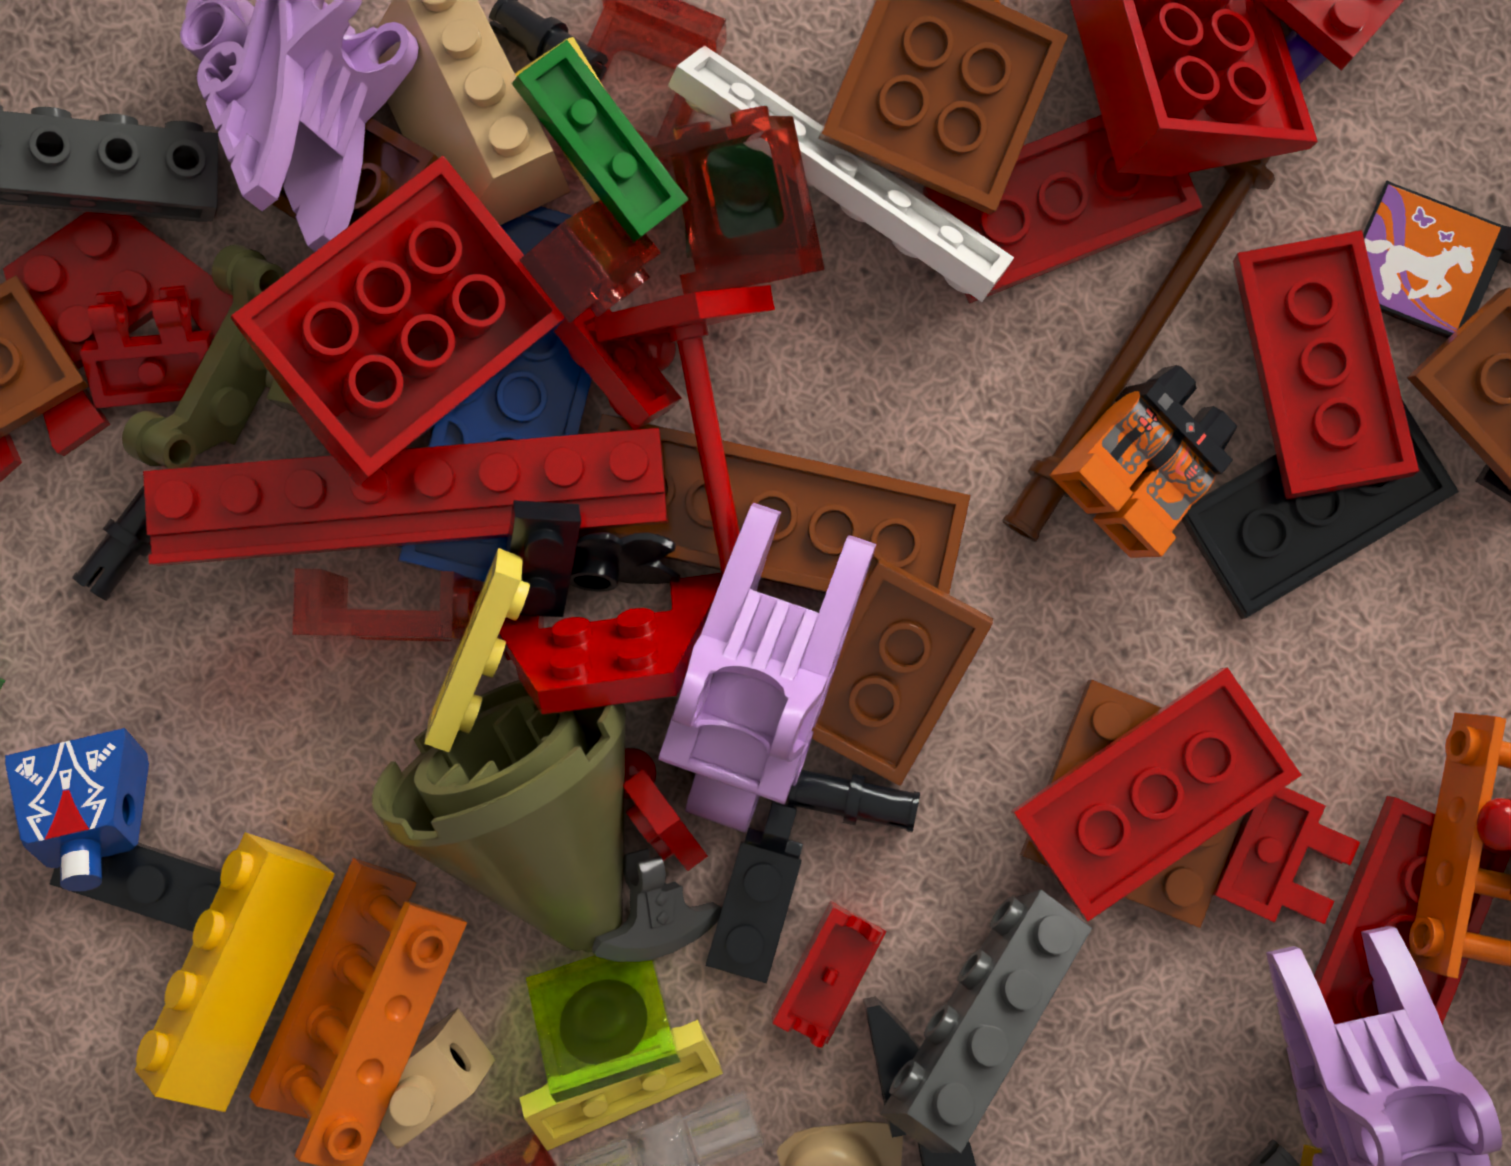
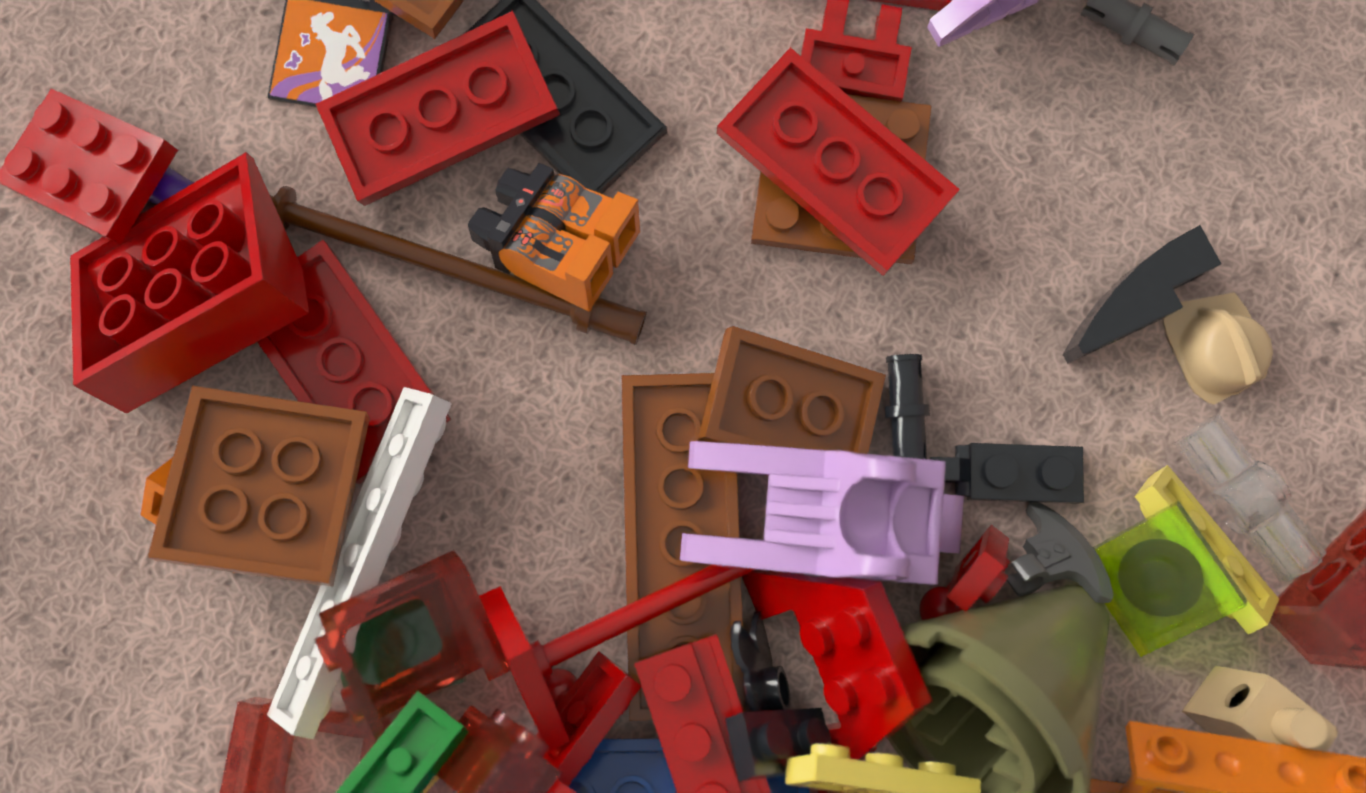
camera: 105 degrees left, 5 degrees down
(827, 974) = (1060, 398): red hinge -> none
(985, 1022) = (1069, 251): dark grey brick -> none

